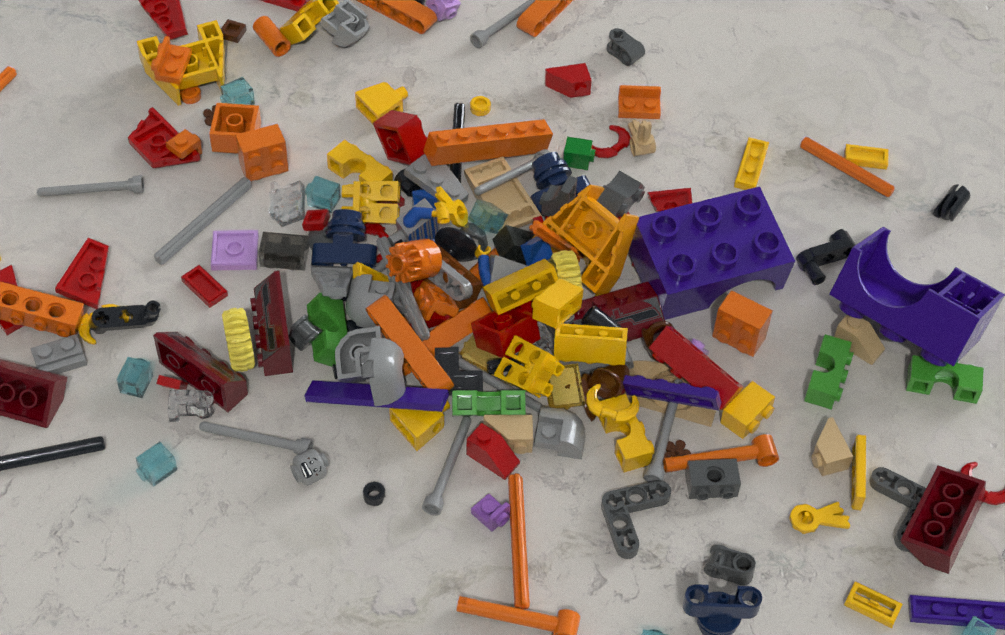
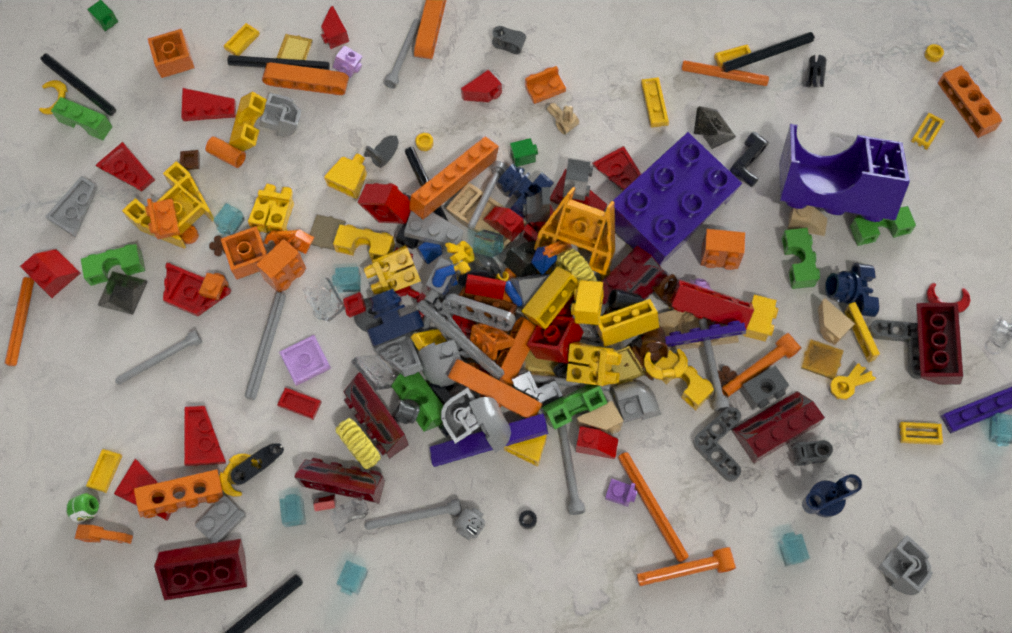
camera: 20 degrees left, 15 degrees up
(36, 70) = (50, 271): none -> red slope
(84, 84) = (96, 266): none -> bright green arch
(93, 119) = (122, 293): none -> clear smoke slope
(94, 25) = (73, 206): none -> light grey wing
(283, 251) = (345, 345): clear smoke brick -> none
(285, 103) = (272, 209): none -> yellow hips
(296, 146) = (302, 245): none -> orange piece
(296, 282) = (374, 371): none -> clear tile
(323, 144) = (324, 231): none -> dark tan piece
(414, 260) = (461, 315): orange gear -> none
(431, 98) = (383, 152): none -> dark grey piece
(459, 250) = (485, 287): none -> red tile
(518, 205) = (505, 222): none -> red slope
(623, 141) = (549, 123): red piece -> none
(707, 524) = (778, 426): none -> dark red slope
(798, 482) = (822, 359): none -> clear yellow piece
(801, 208) = (712, 127): none -> clear smoke slope
(879, 425) = (852, 287): none -> dark blue beam
(906, 163) = (768, 52): none -> black axle

